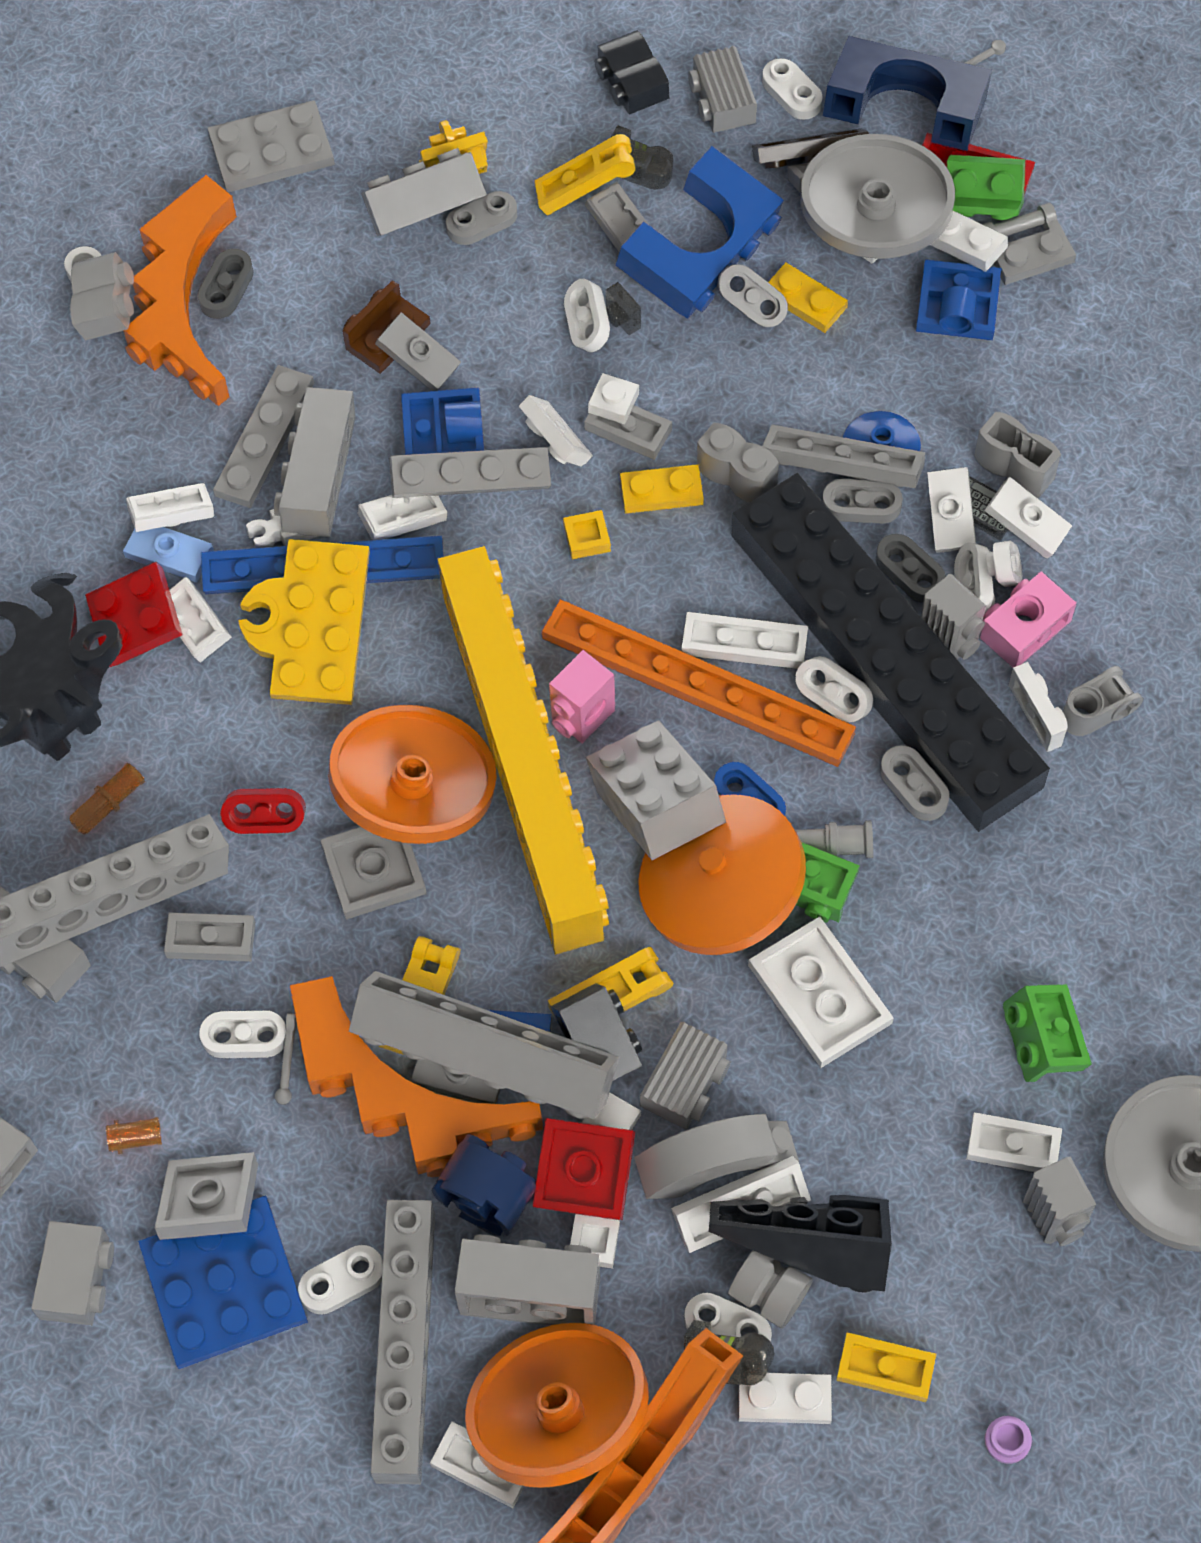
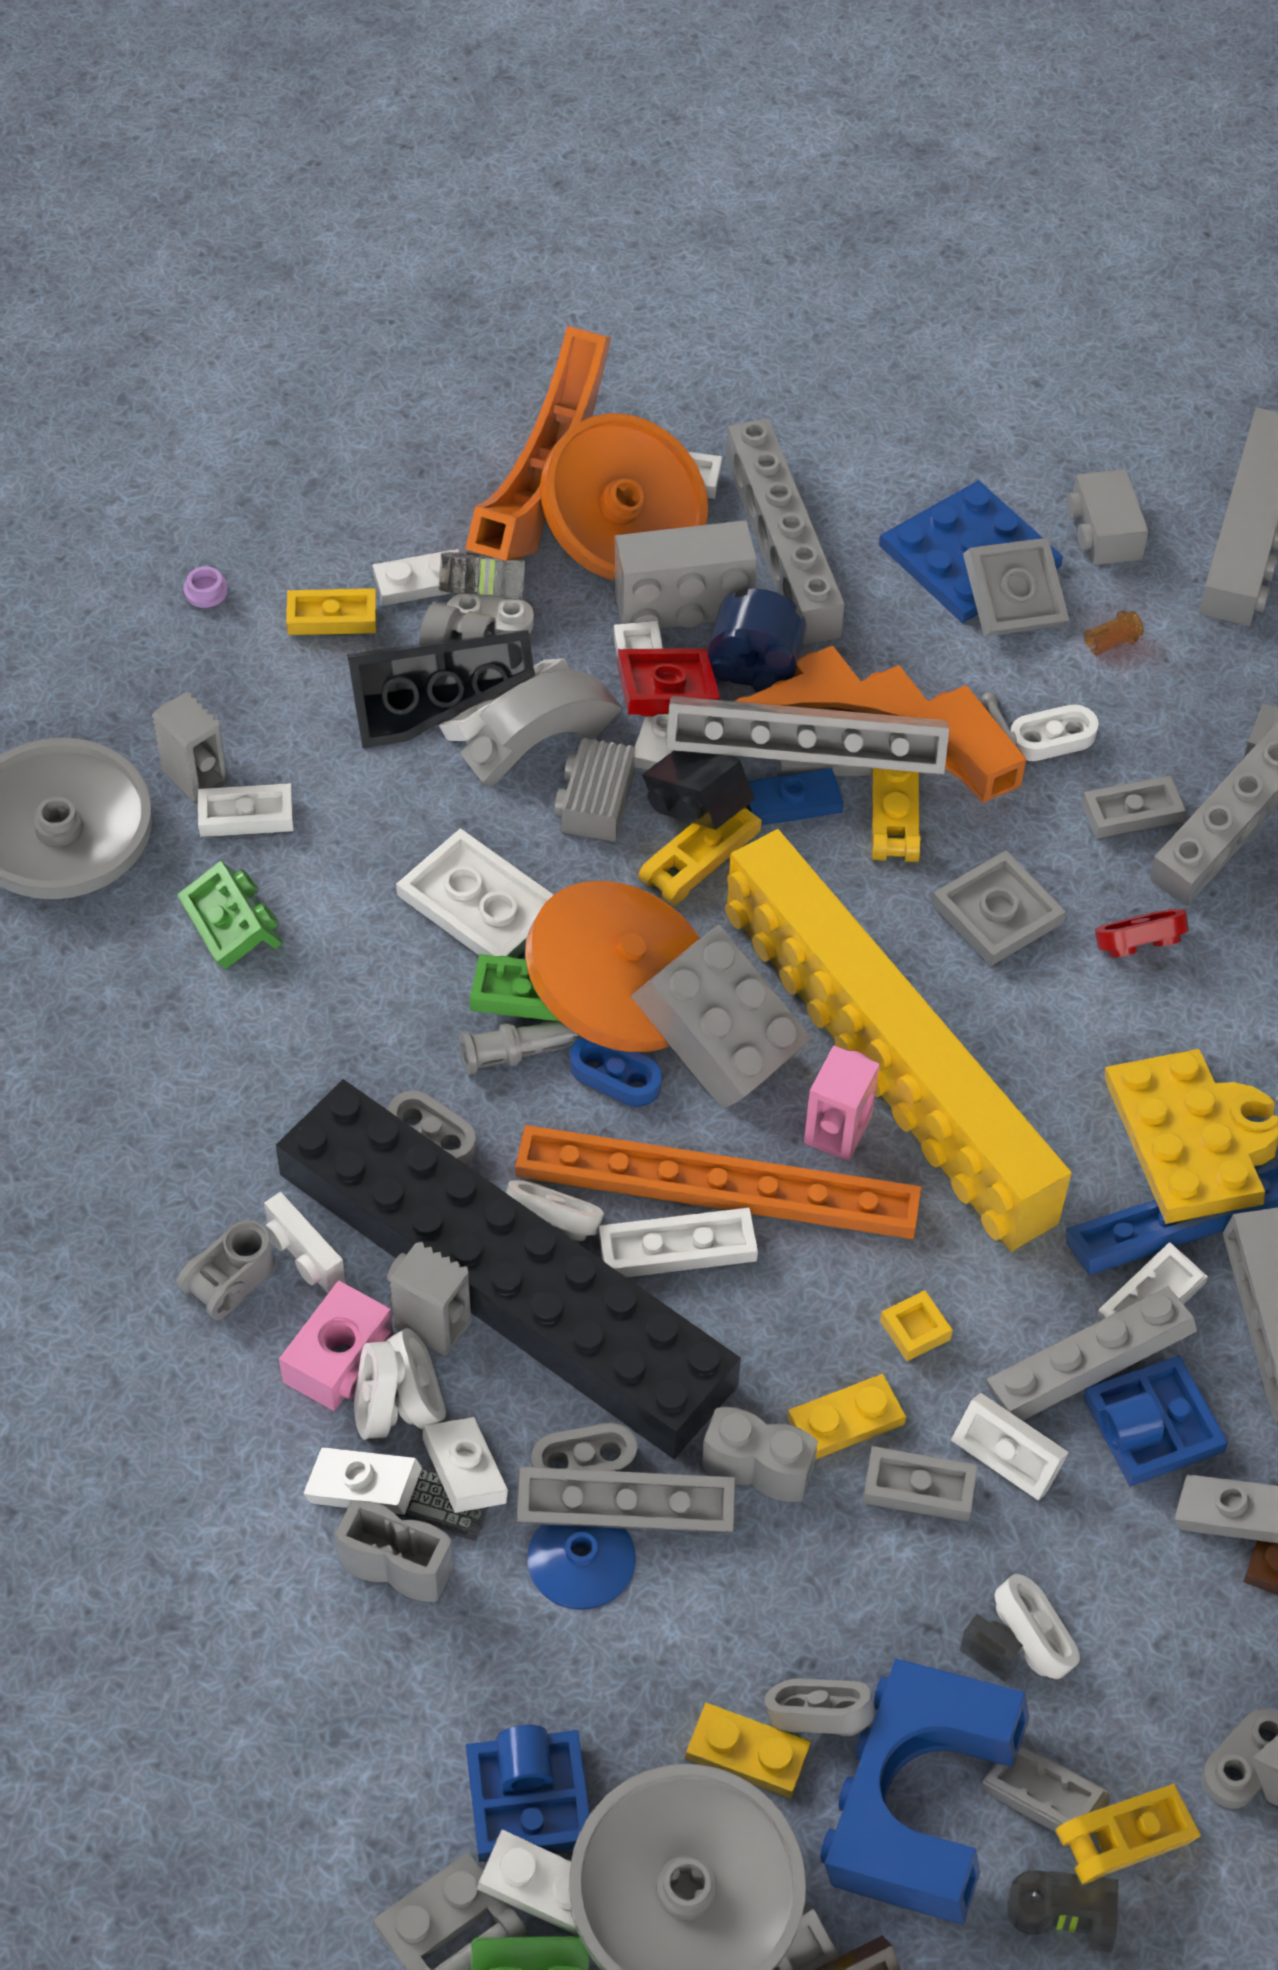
camera: 160 degrees right, 10 degrees down
(343, 1282) = (868, 571): white plate -> none
(412, 774) = (1005, 982): orange dish -> none
(613, 398) = (950, 1495): white plate -> none
(913, 568) = (502, 1383): dark grey plate -> none

